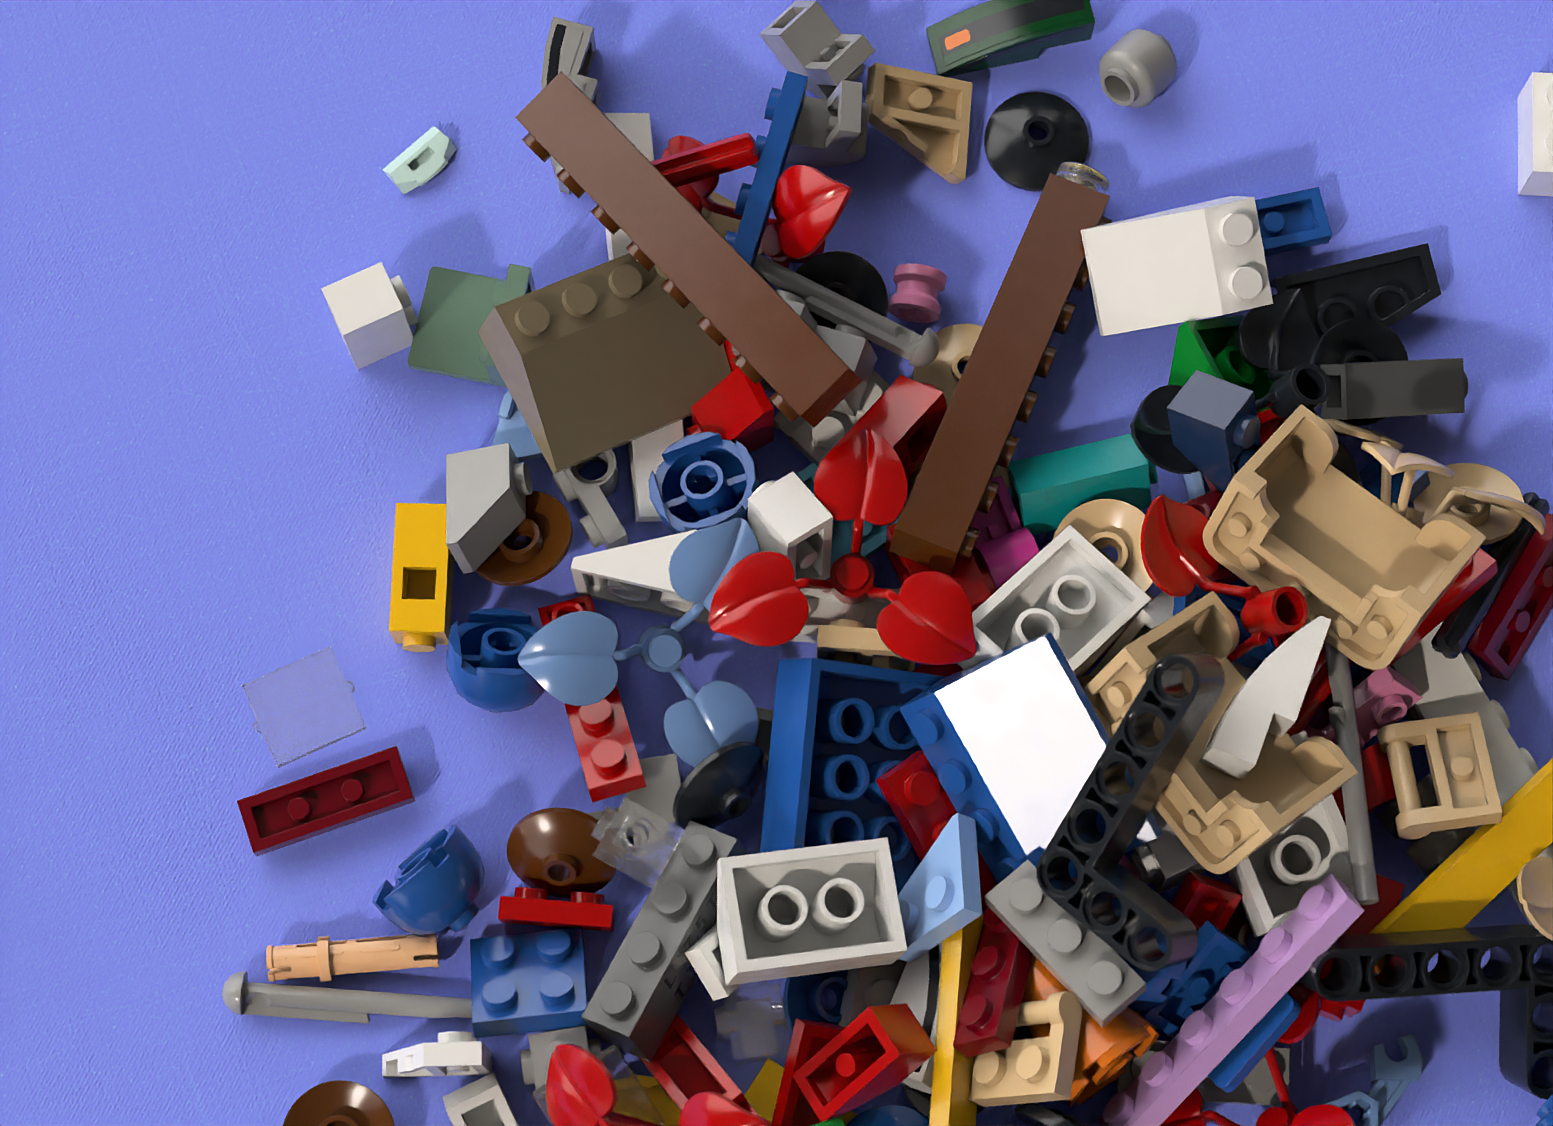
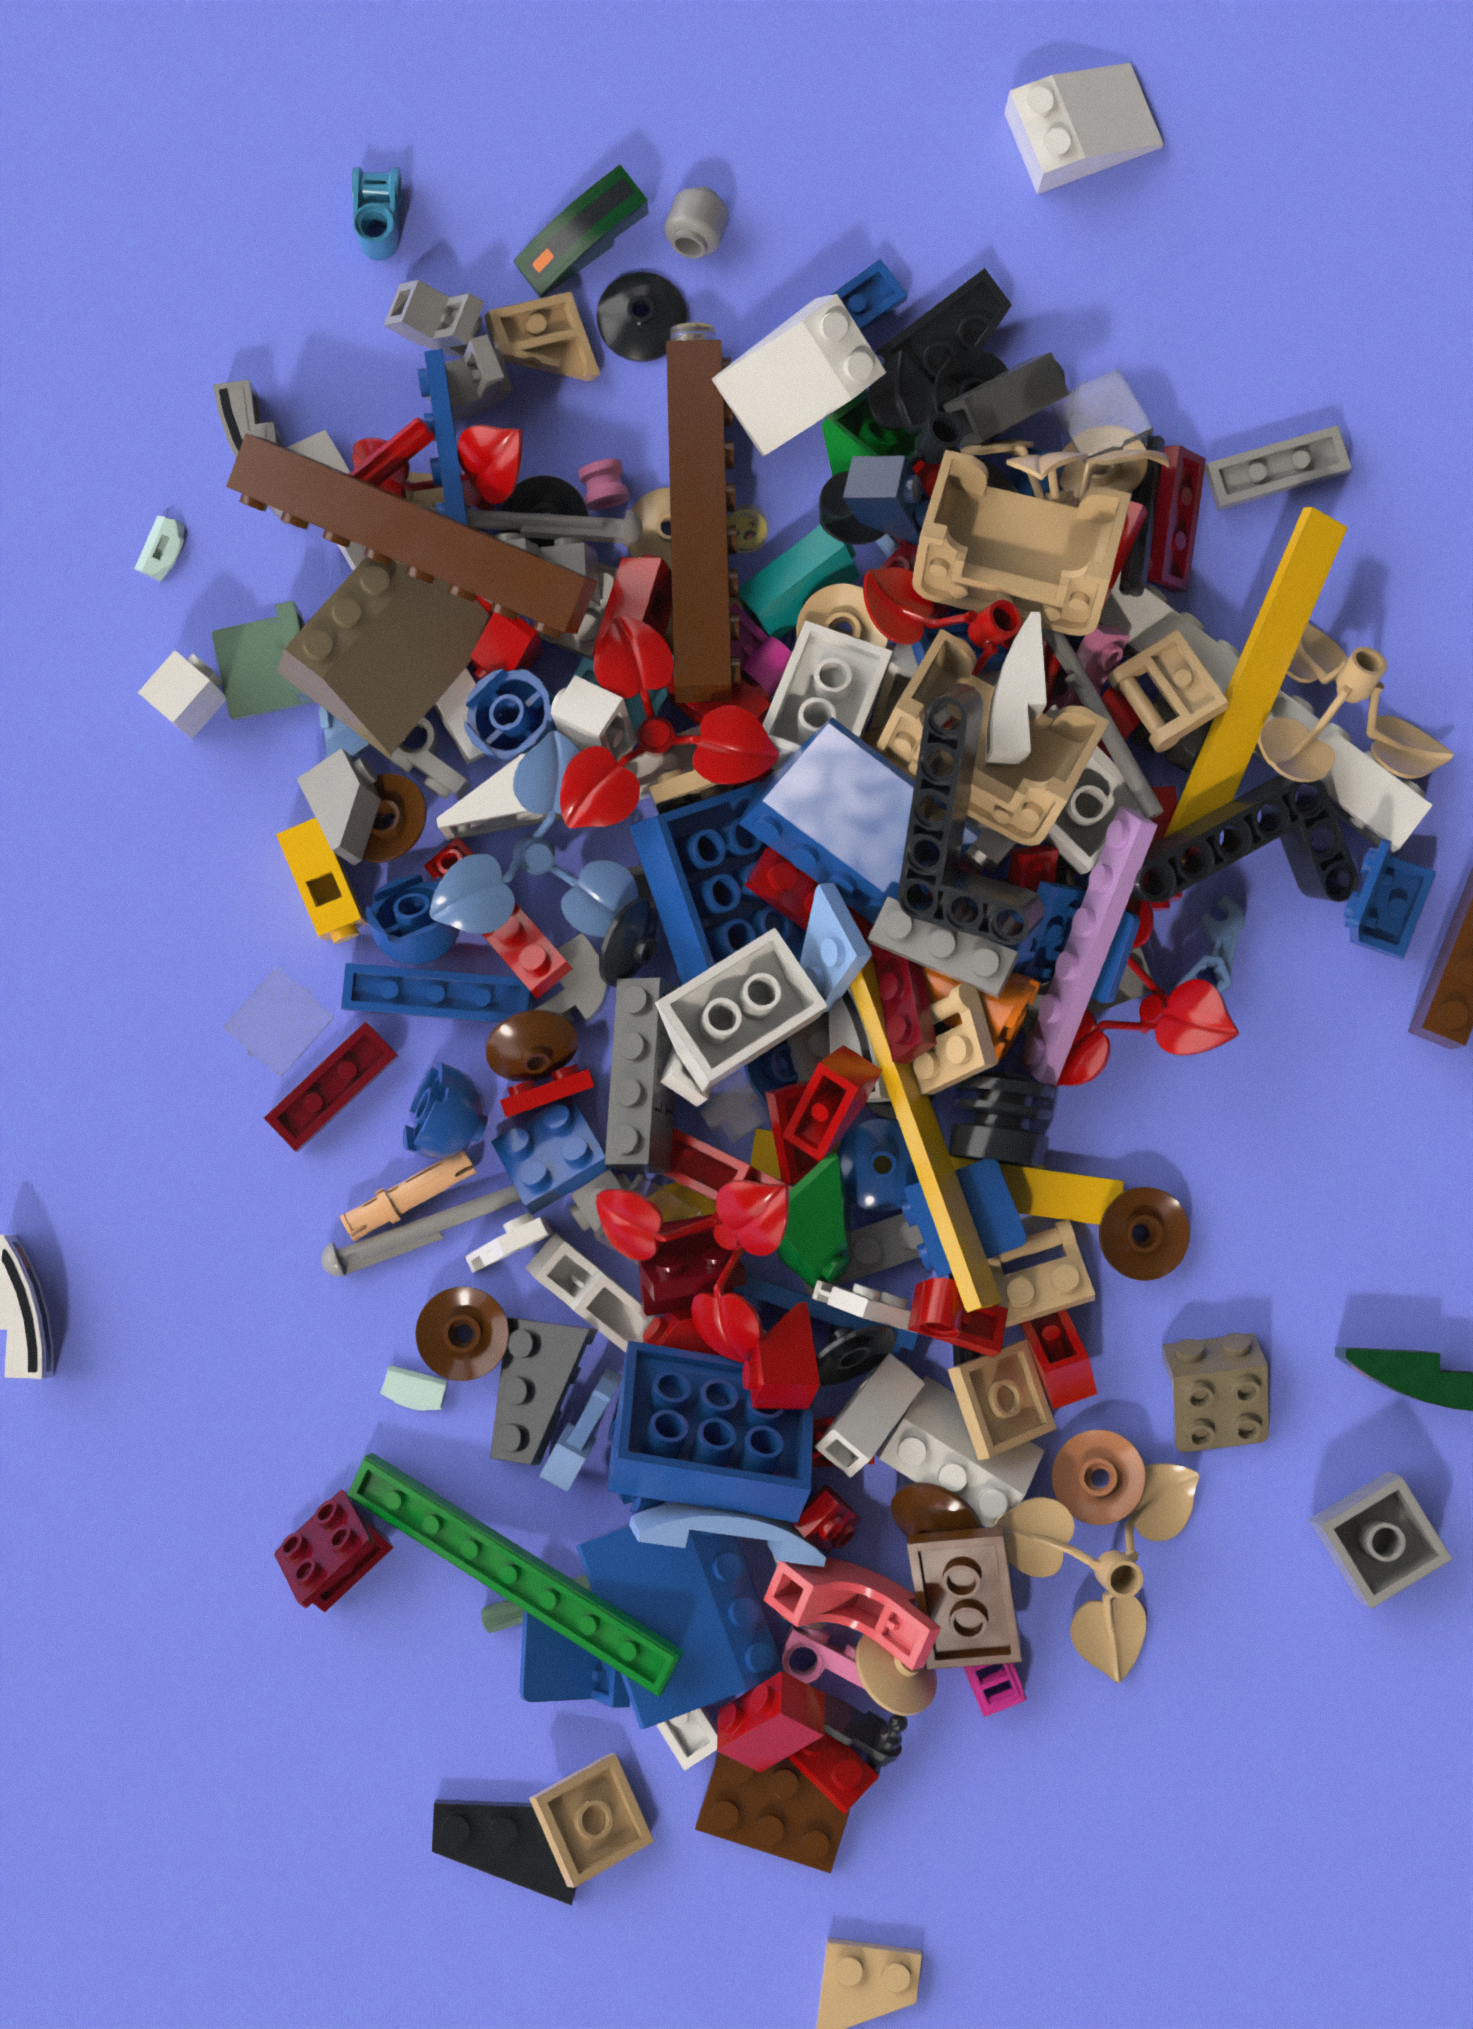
camera: 25 degrees left, 10 degrees up
(482, 748) = (433, 993): none -> blue plate
(655, 834) = (600, 1005): clear brick -> none
(1053, 407) = (751, 527): none -> clear tile
(1491, 451) = (1102, 415): none -> clear piece

